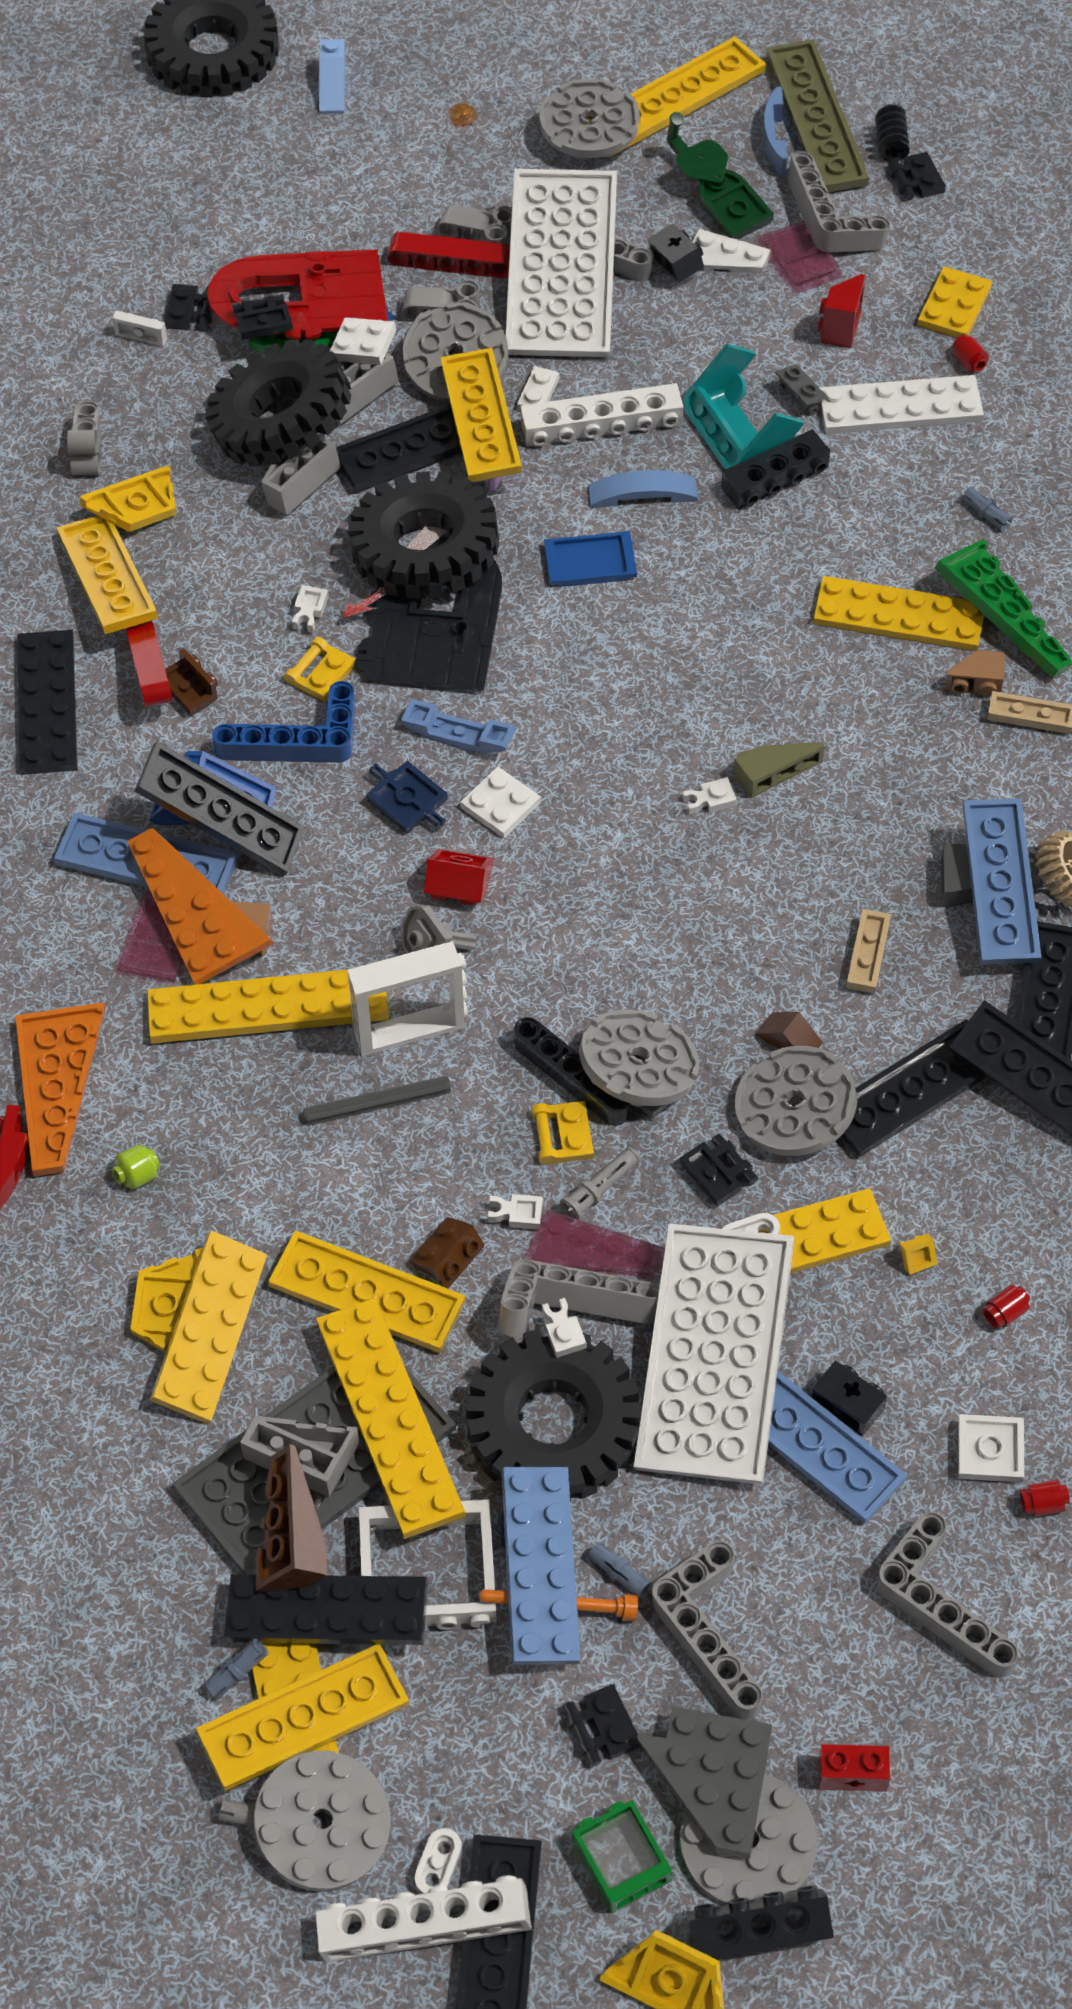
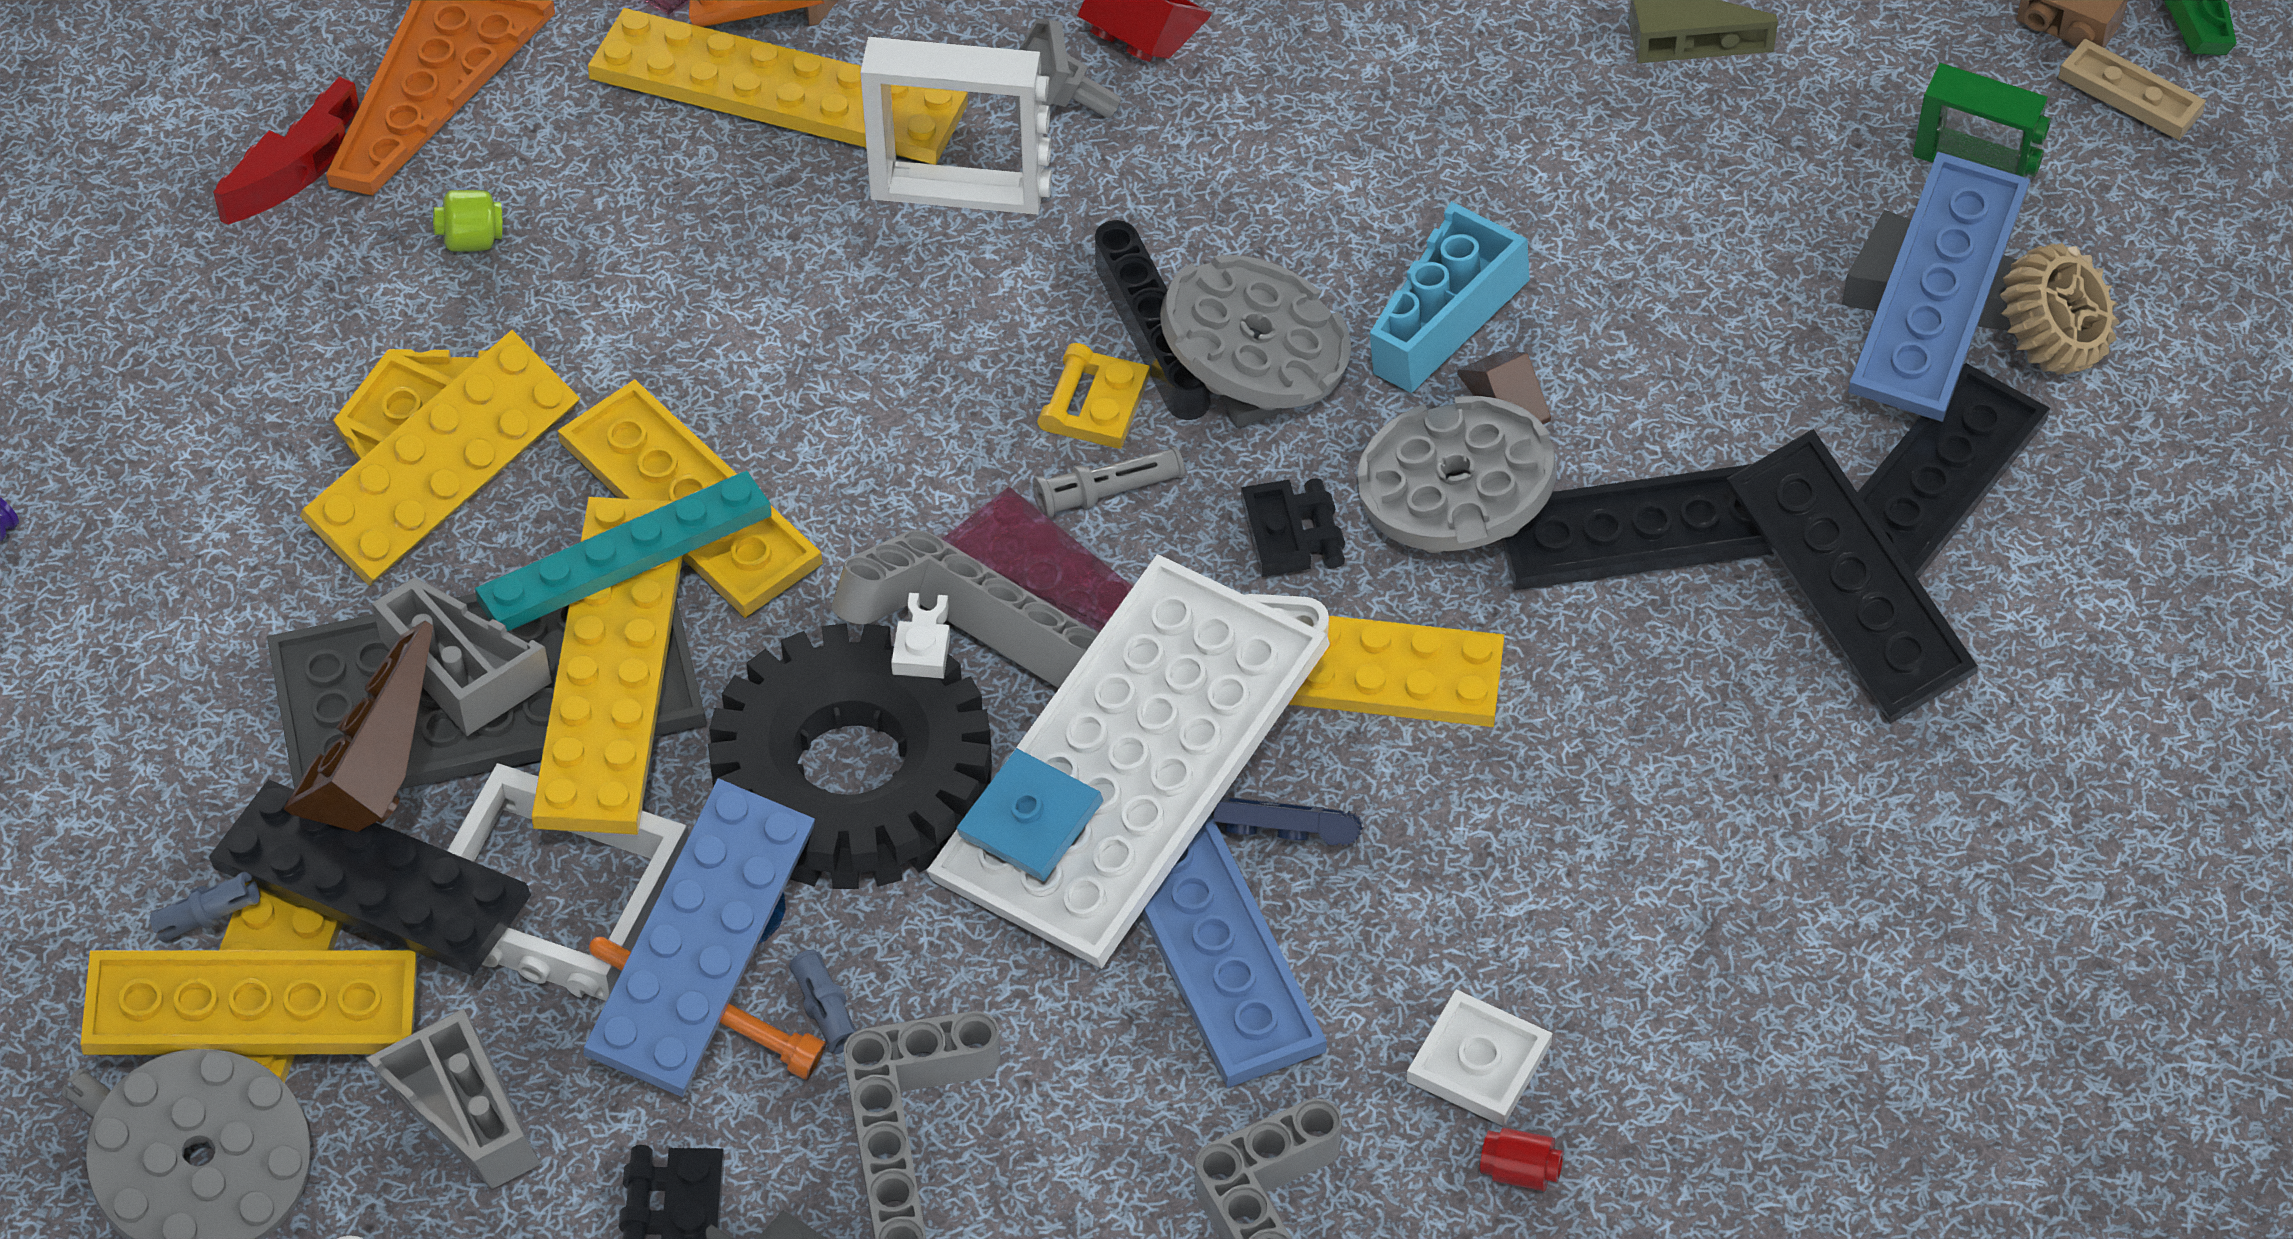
camera: 25 degrees right, 5 degrees down
(362, 1347) = (623, 551): none -> teal plate
(377, 1100) = (855, 260): dark grey axle -> none
(448, 1251) = (835, 489): reddish brown bracket -> none
(453, 1720) = (459, 1096): none -> light grey wedge
(521, 1211) = (967, 476): white plate -> none
(679, 1410) = (1030, 814): none -> dark azure plate
(713, 795) = (1580, 40): white plate -> none
(731, 990) = (1447, 296): none -> medium azure wedge
(818, 1350) = (1291, 820): none -> dark blue hinge
(857, 1411) = (1302, 902): black brick -> none
(868, 951) = (1690, 319): tan plate -> none
(918, 1253) = (1524, 749): yellow tile -> none
(969, 770) = (1982, 122): none -> green window
(1006, 1306) = (1618, 872): red brick -> none

